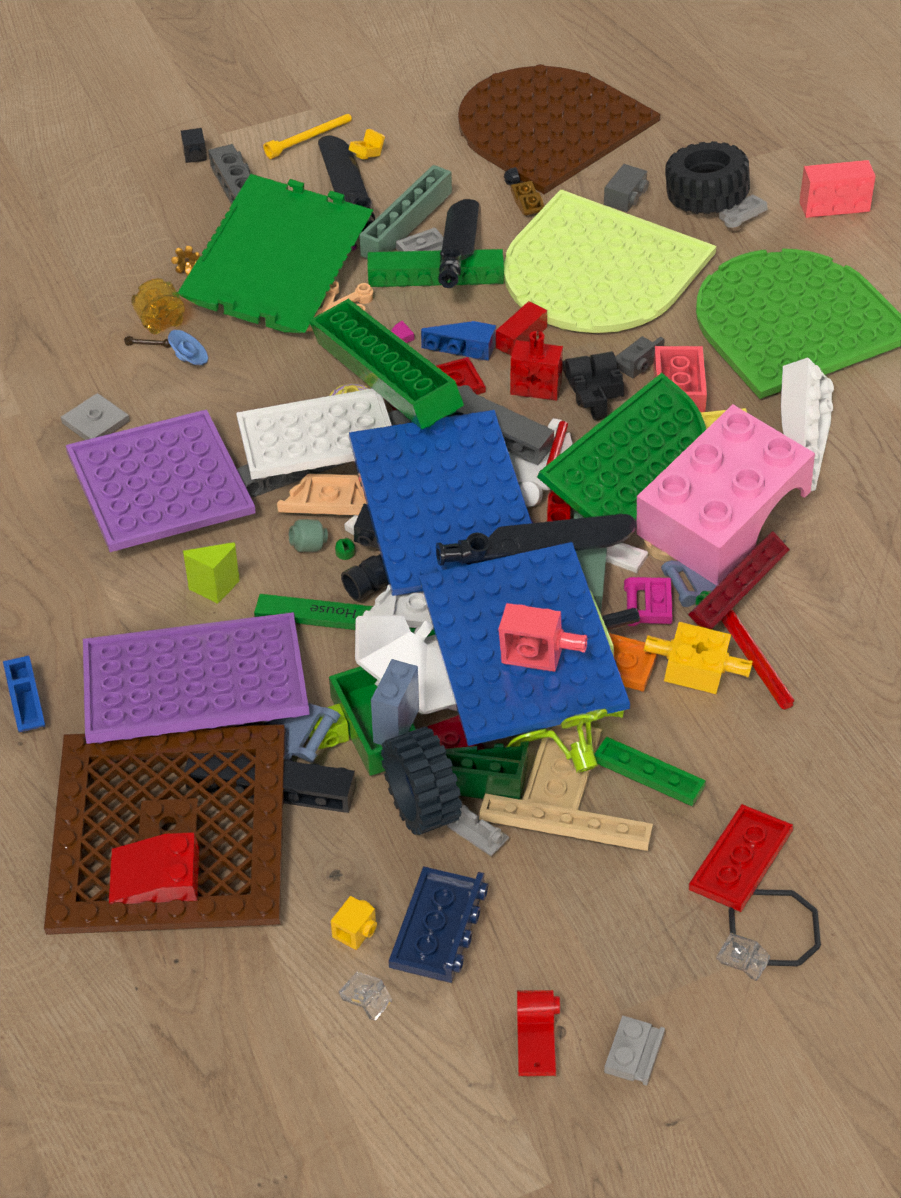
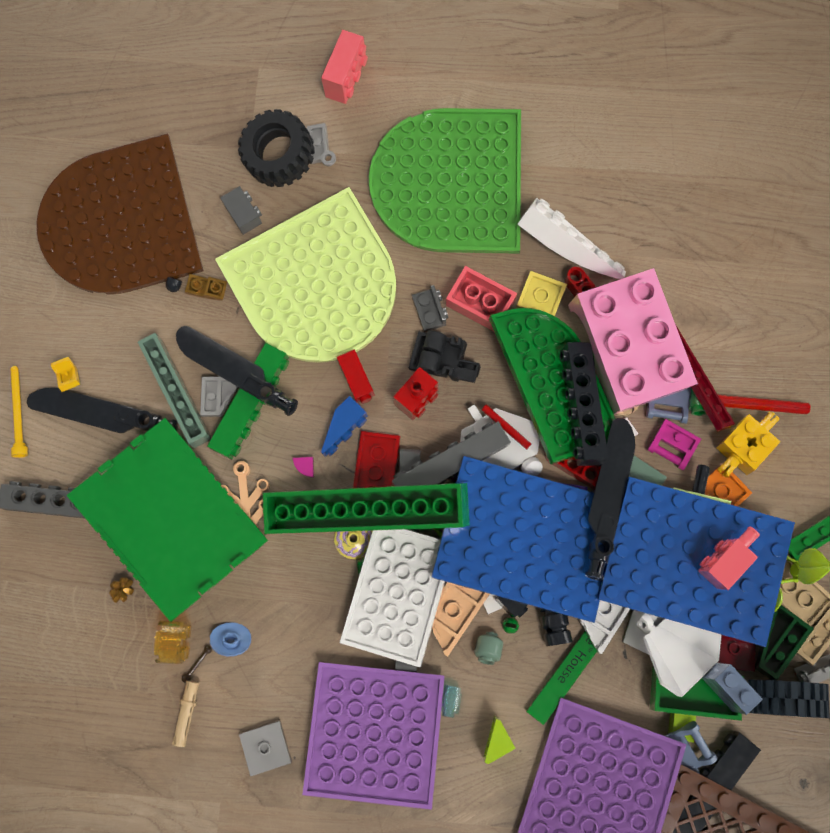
camera: 55 degrees left, 30 degrees up
(121, 343) = (184, 719): none -> tan pin
(231, 529) = (451, 701): none -> clear light blue brick
(616, 476) = (591, 413): none -> black brick

